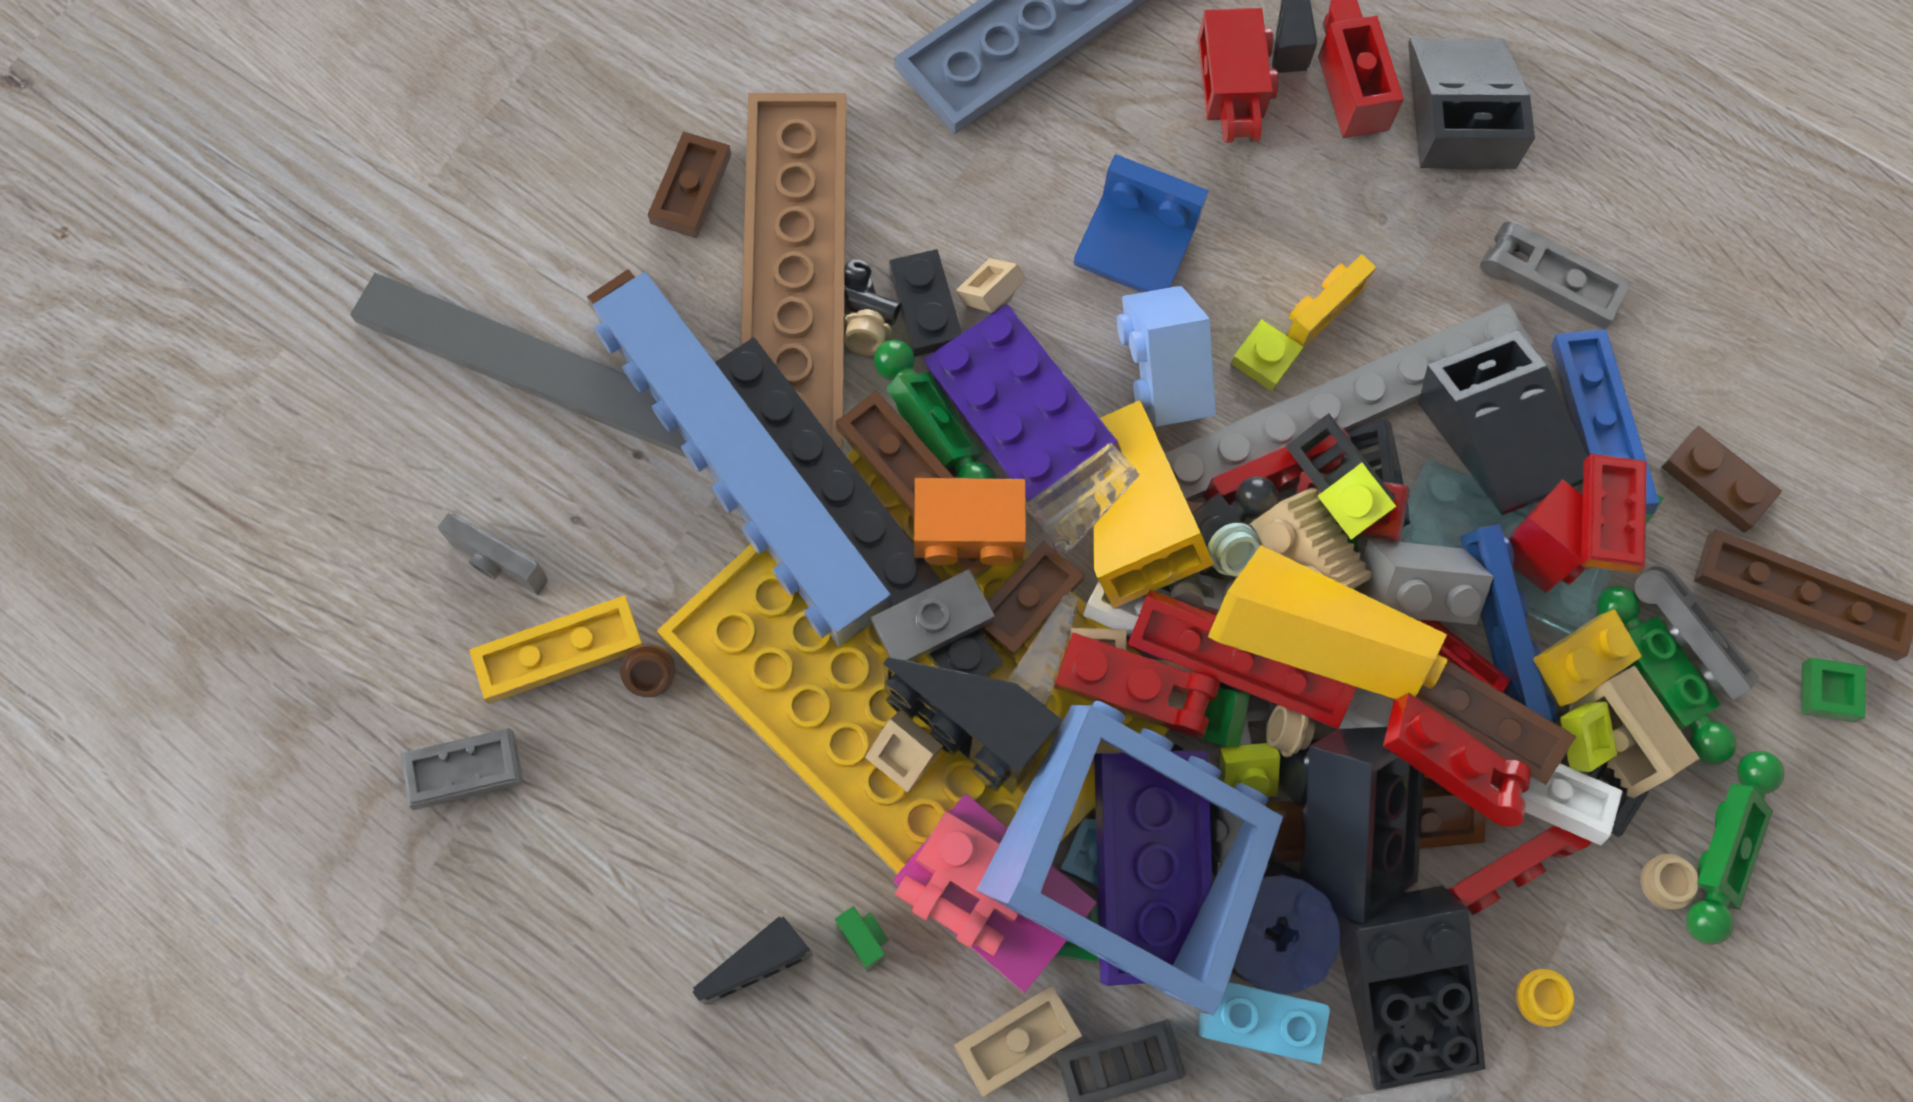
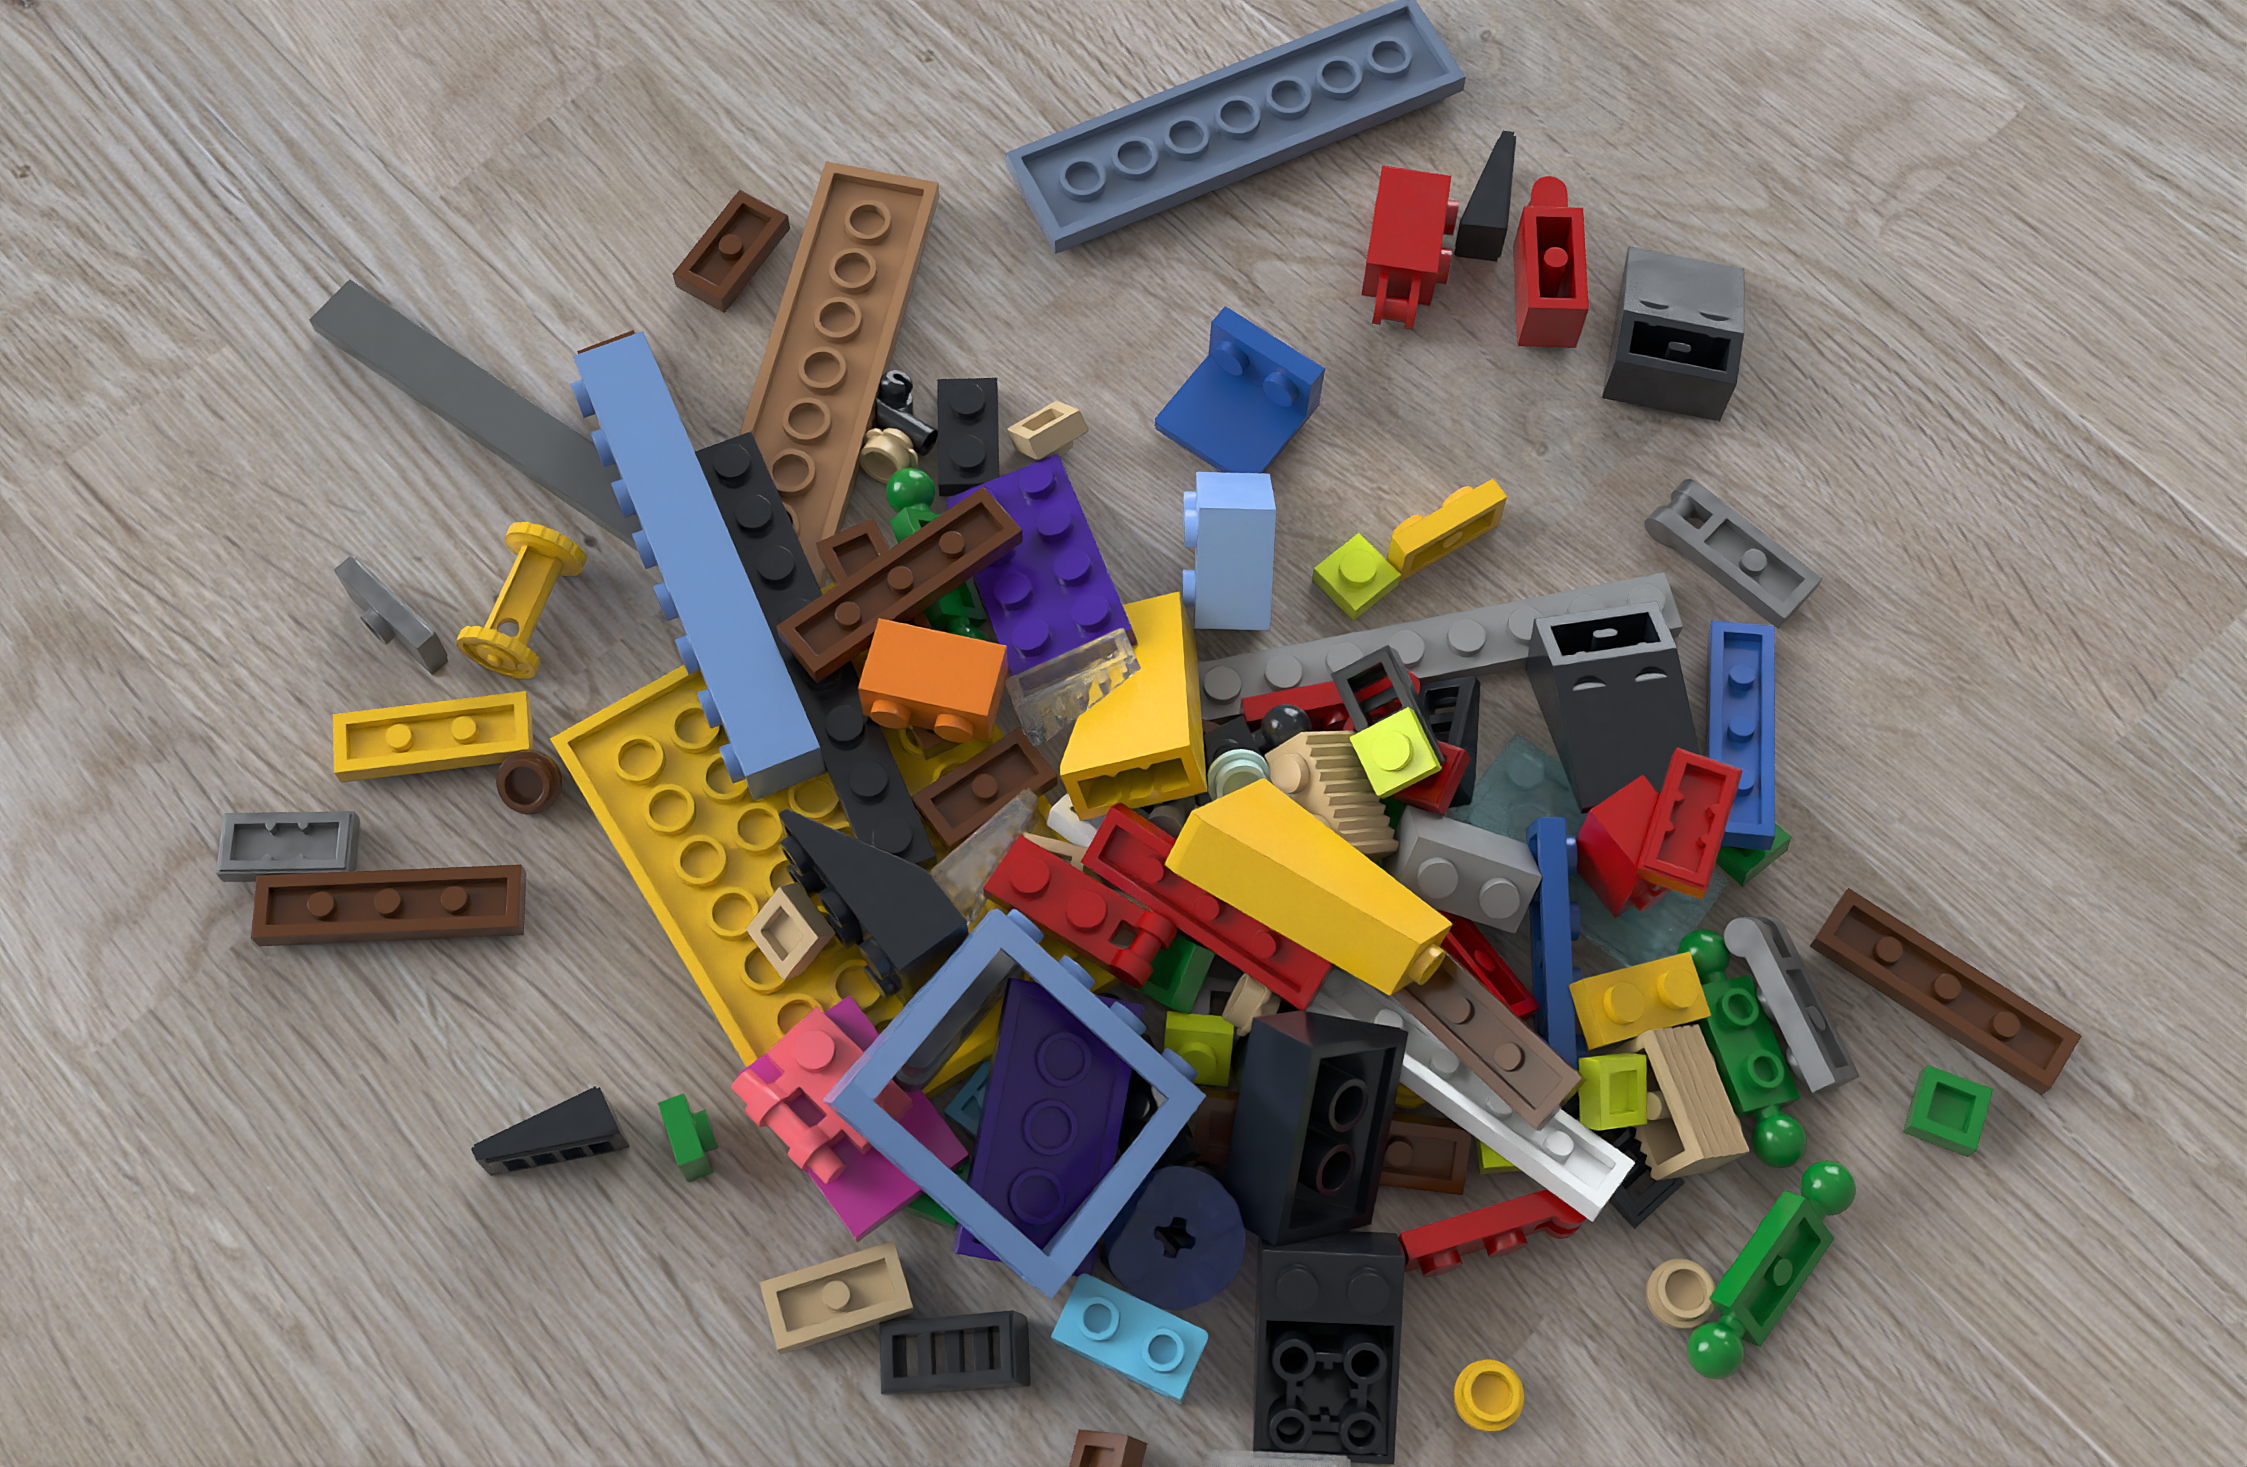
camera: 15 degrees right, 5 degrees down
(559, 800) = (389, 905): none -> reddish brown plate
(600, 518) = (539, 561): none -> yellow hose
(917, 443) = (900, 583): none -> reddish brown plate
(933, 618) = (864, 785): flat silver plate -> none
(1457, 761) = (1429, 1075): red plate -> none
(1721, 479) = (1877, 833): reddish brown plate -> none

